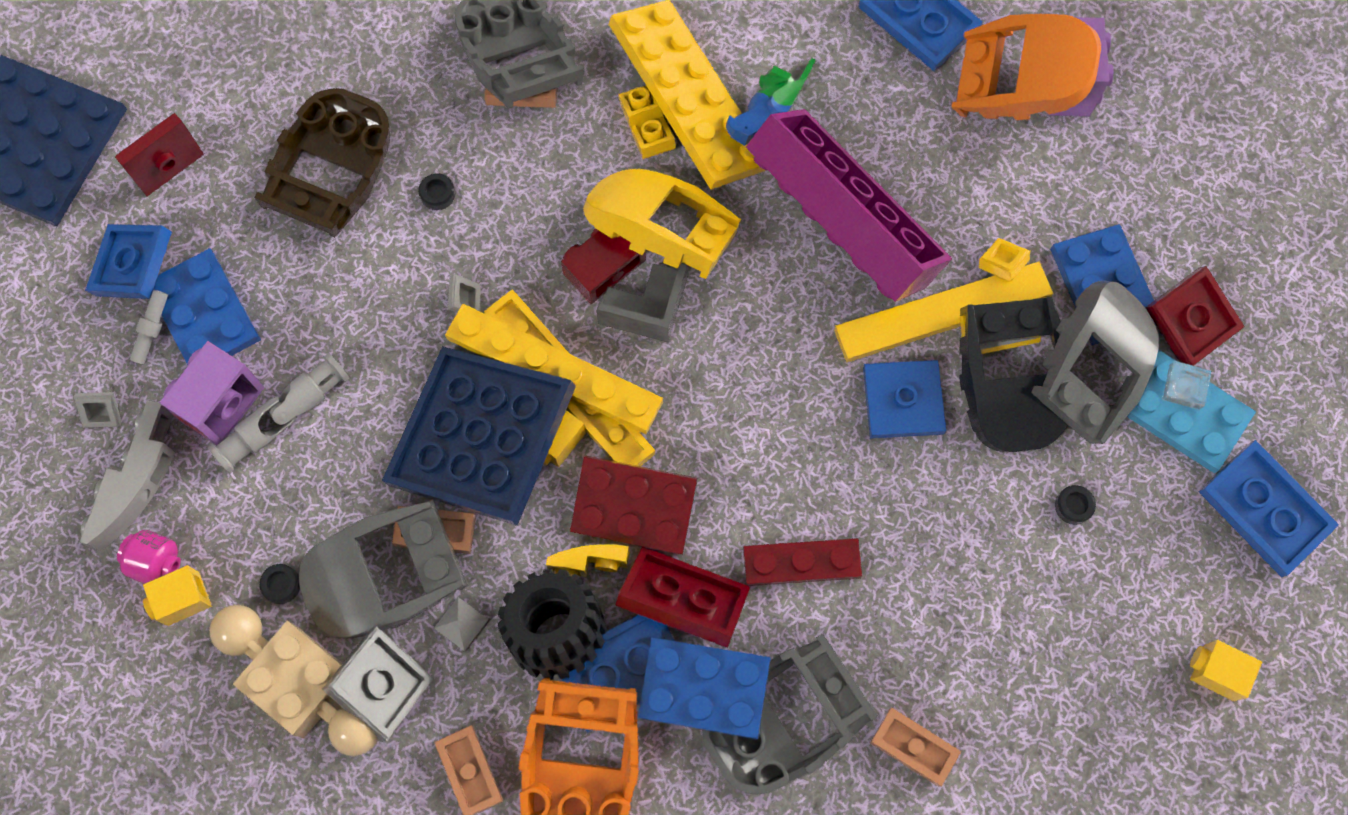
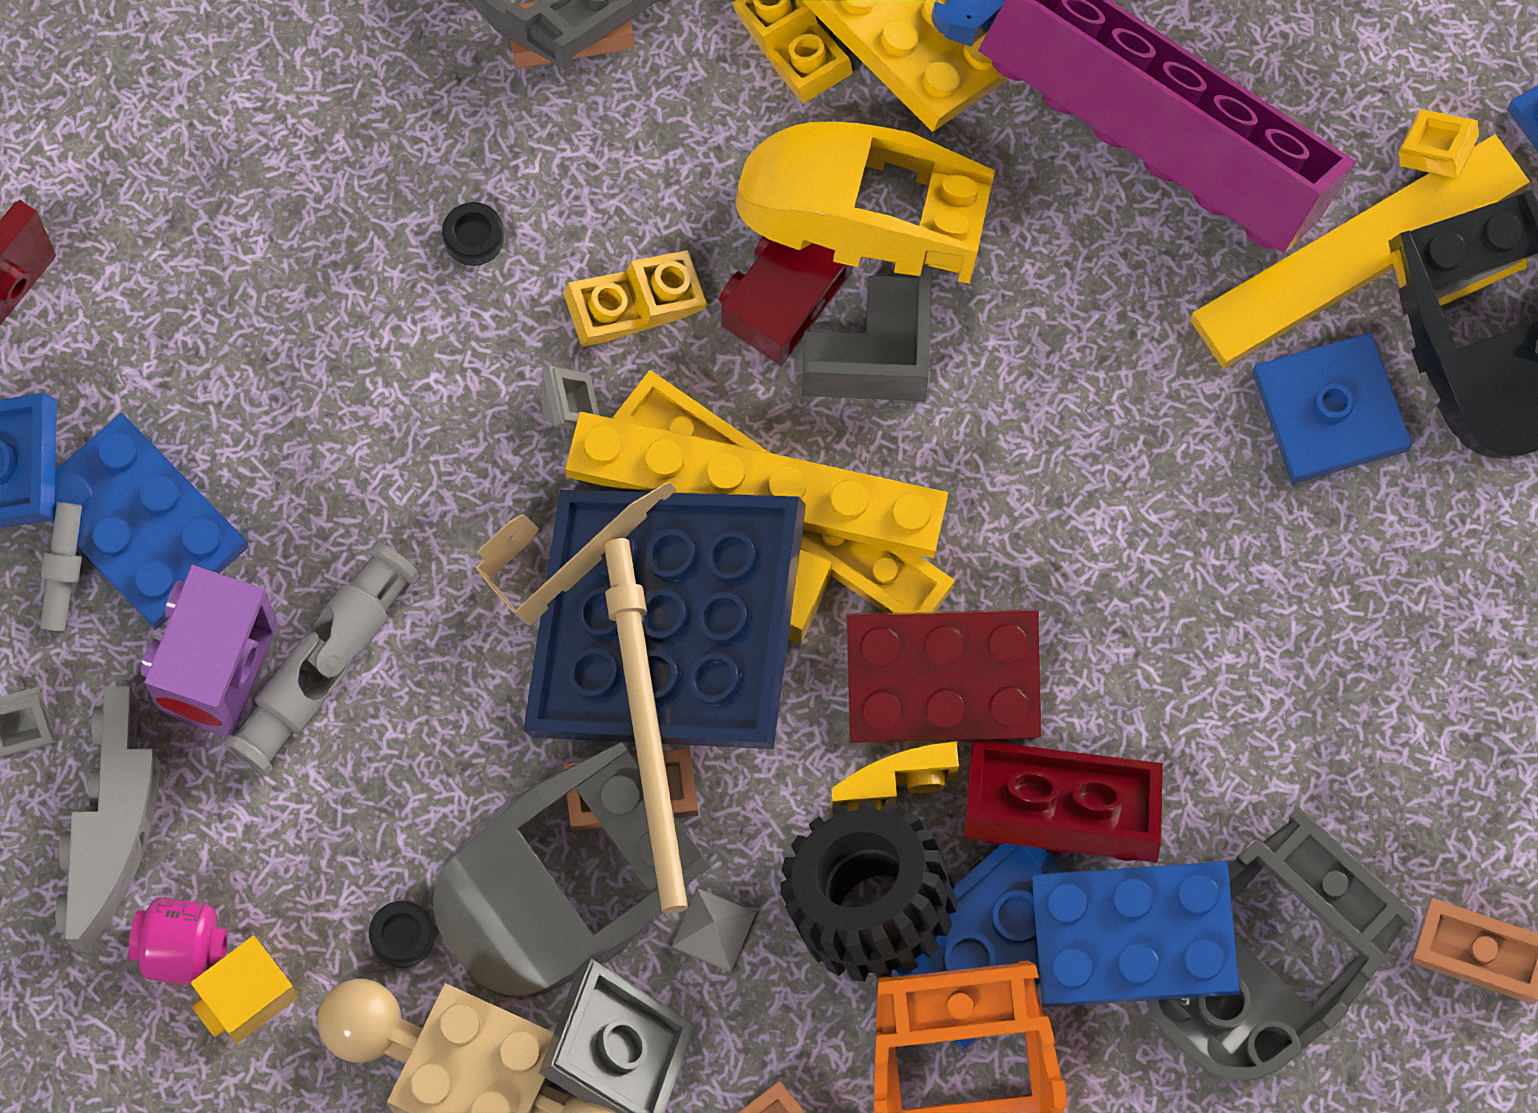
camera: 15 degrees left, 0 degrees up
(339, 130) = (285, 166): dark brown slope -> none
(398, 374) = (503, 548): none -> tan piece
(455, 421) = (626, 607): none -> tan bar
(517, 248) = (634, 300): none -> yellow slope
(802, 562) = (1233, 706): dark red plate -> none

